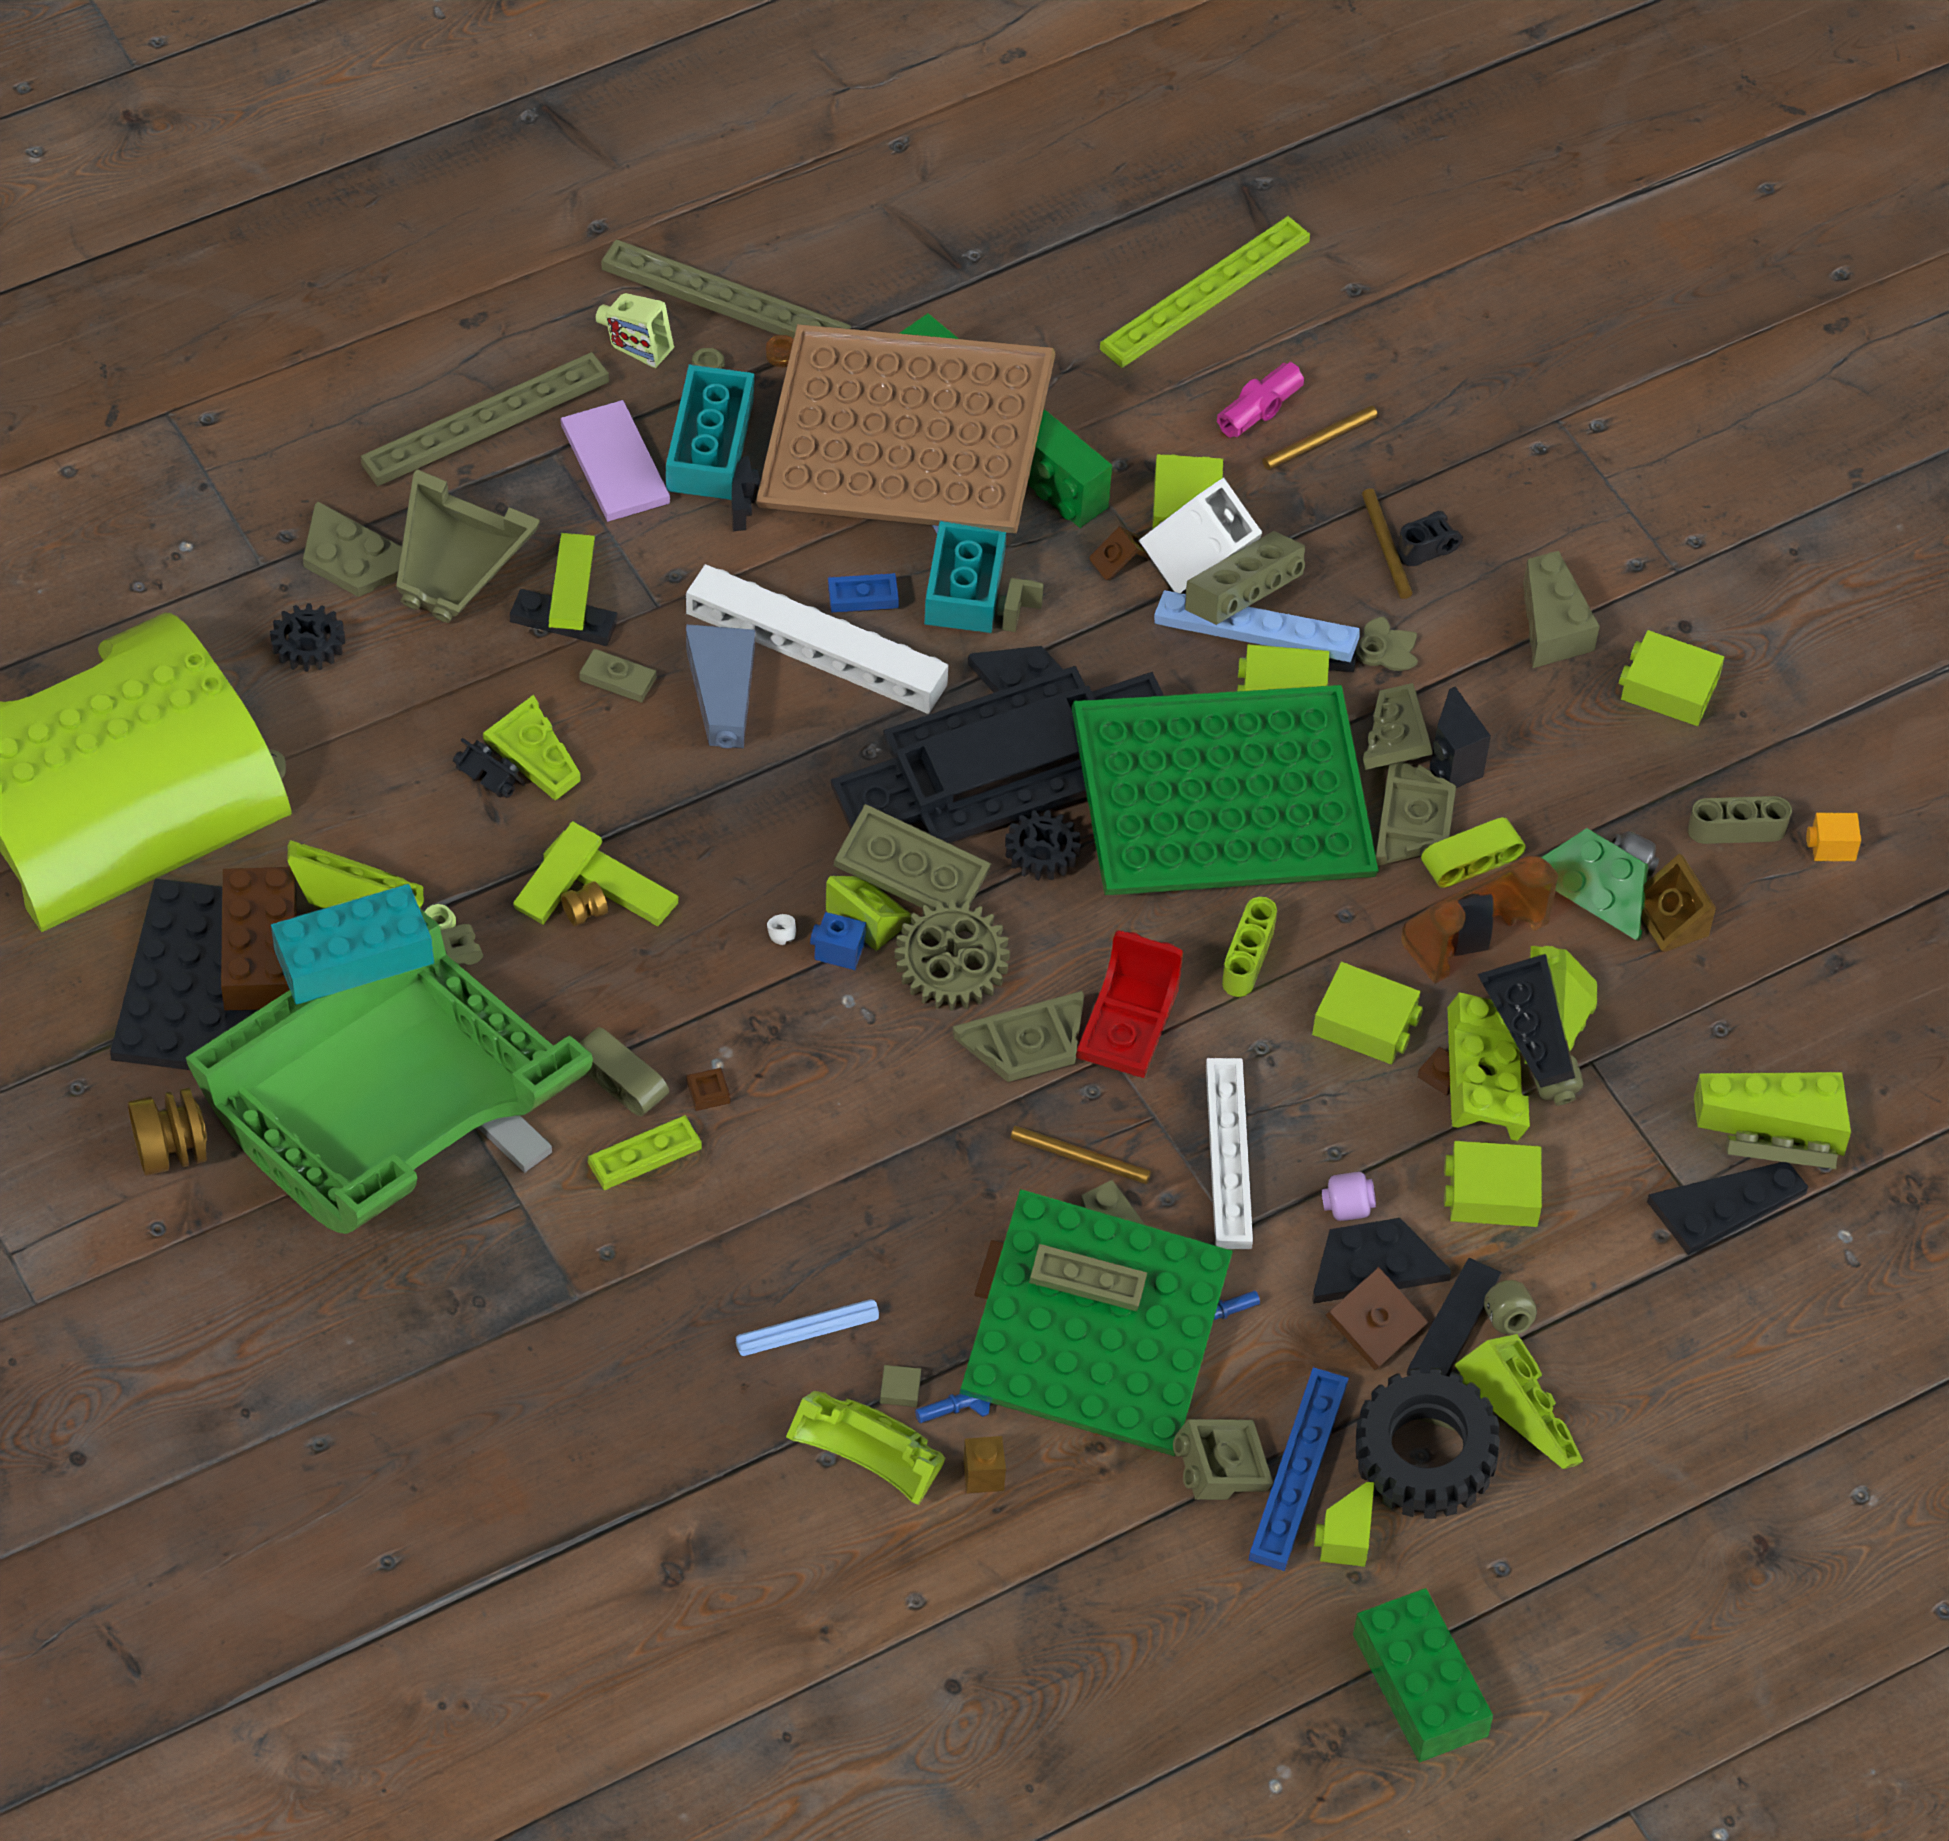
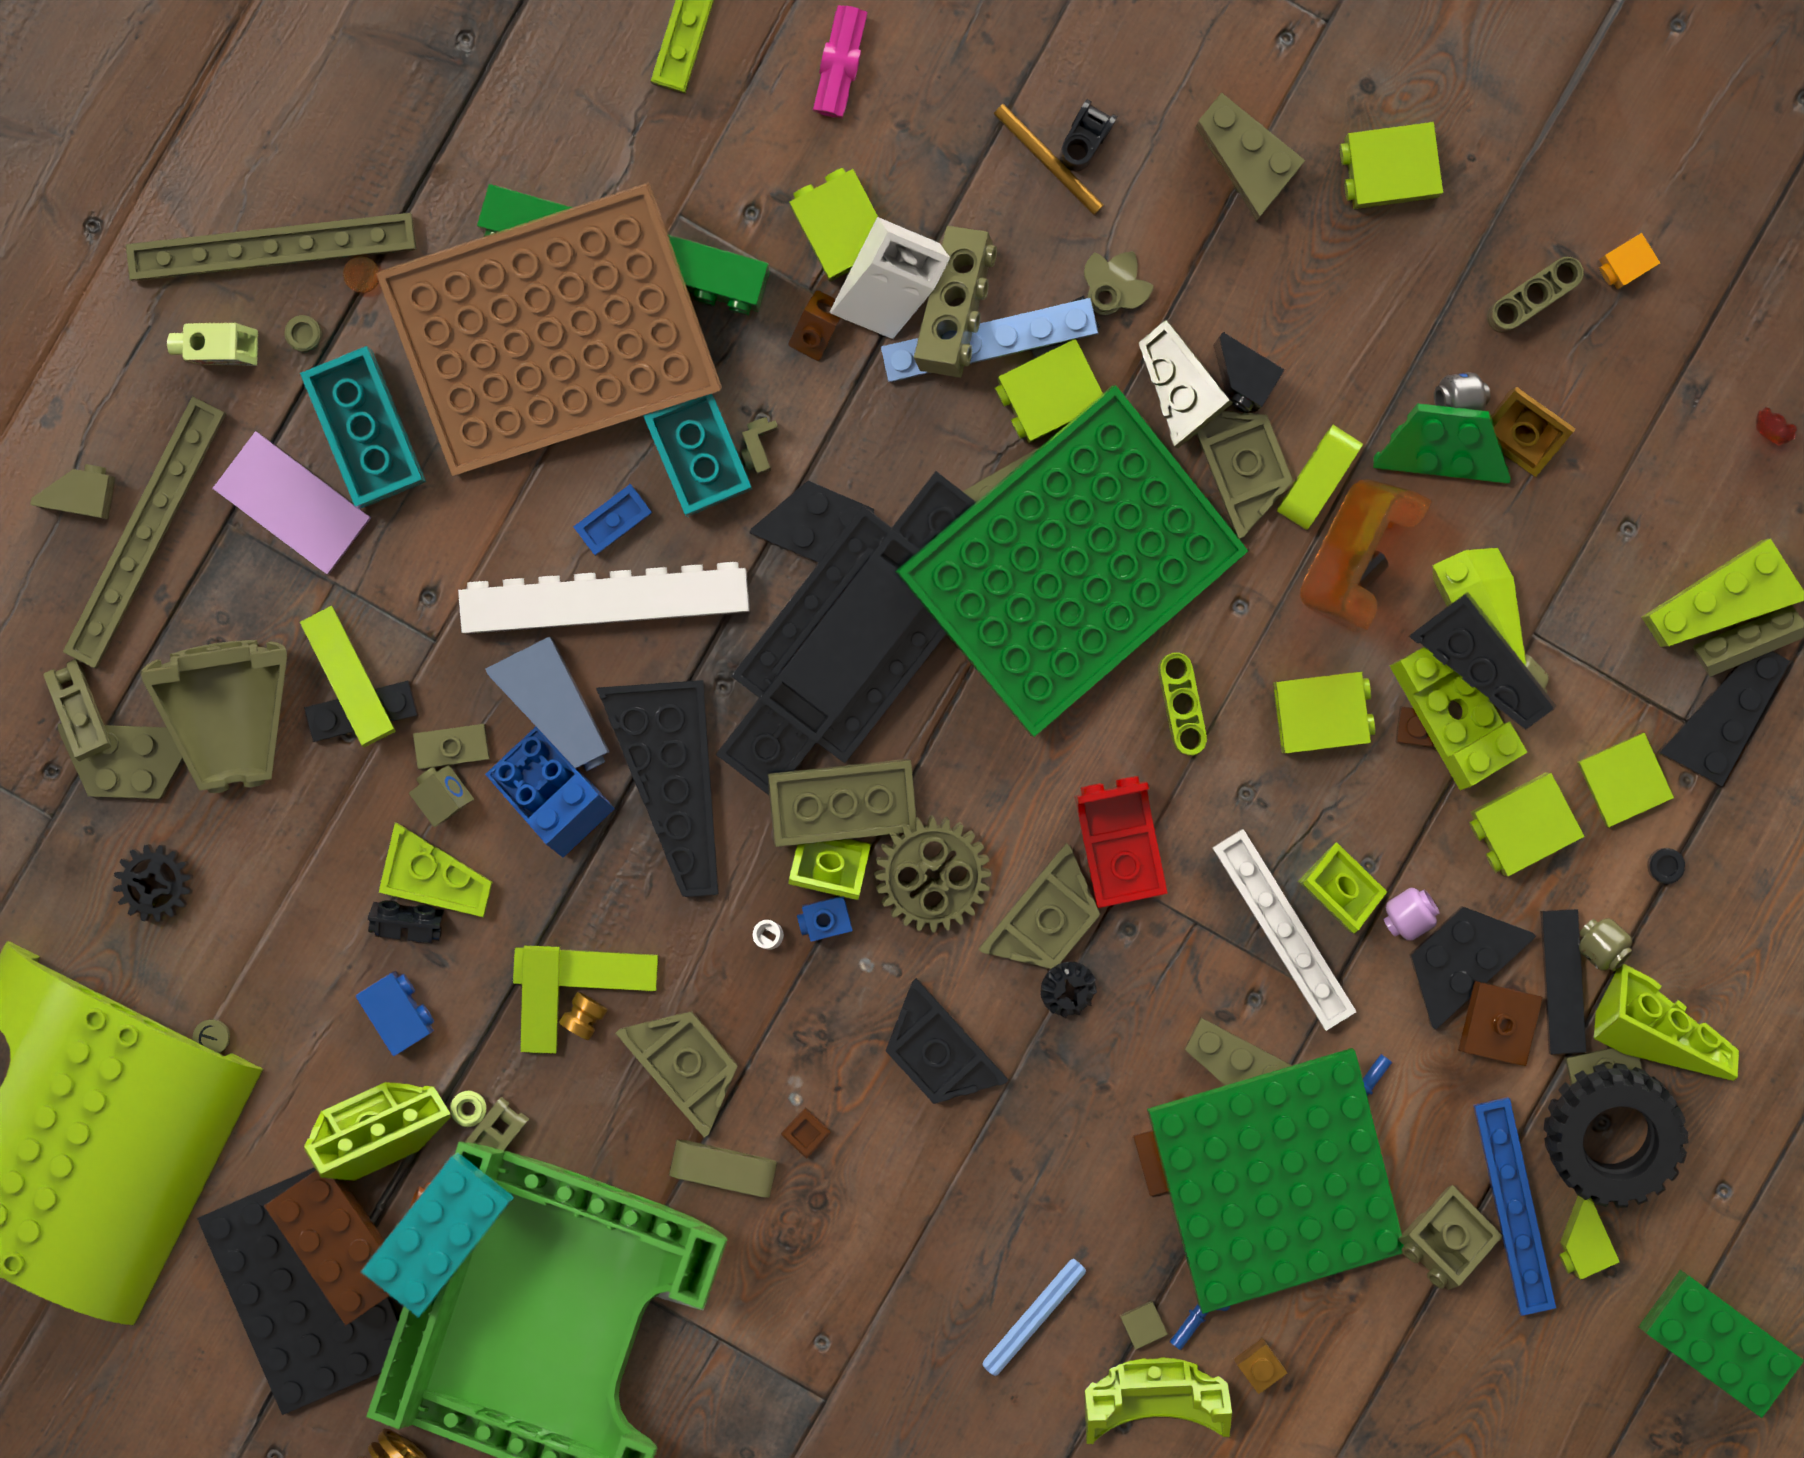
camera: 30 degrees left, 35 degrees up
(341, 496) = (77, 710): none -> olive plate
(431, 821) = (396, 1012): none -> blue brick
(453, 368) = (79, 493): none -> olive slope
(585, 694) = (440, 794): none -> olive brick
(643, 983) = (684, 1063): none -> olive wing
(644, 1152) = (792, 1229): lime tile -> none
(675, 743) = (549, 792): none -> blue slope
(743, 487) = (429, 464): black slope -> none
(787, 772) = (668, 756): none -> black wing
(866, 1086) = (938, 1050): none -> black wing
(996, 1107) = (1054, 985): none -> black gear
(1042, 845) = (947, 690): black gear -> none
(1080, 1154) = (1158, 1004): pearl gold bar -> none
(1088, 1277) = (1257, 1165): olive plate -> none
(1297, 1148) = (1343, 888): none -> lime slope
(1320, 437) = (917, 68): pearl gold bar -> none
(1603, 1285) = (1666, 865): none -> black tile
(1605, 1203) = (1625, 780): none -> lime tile
(1894, 1012) = (1775, 427): none -> clear red plate

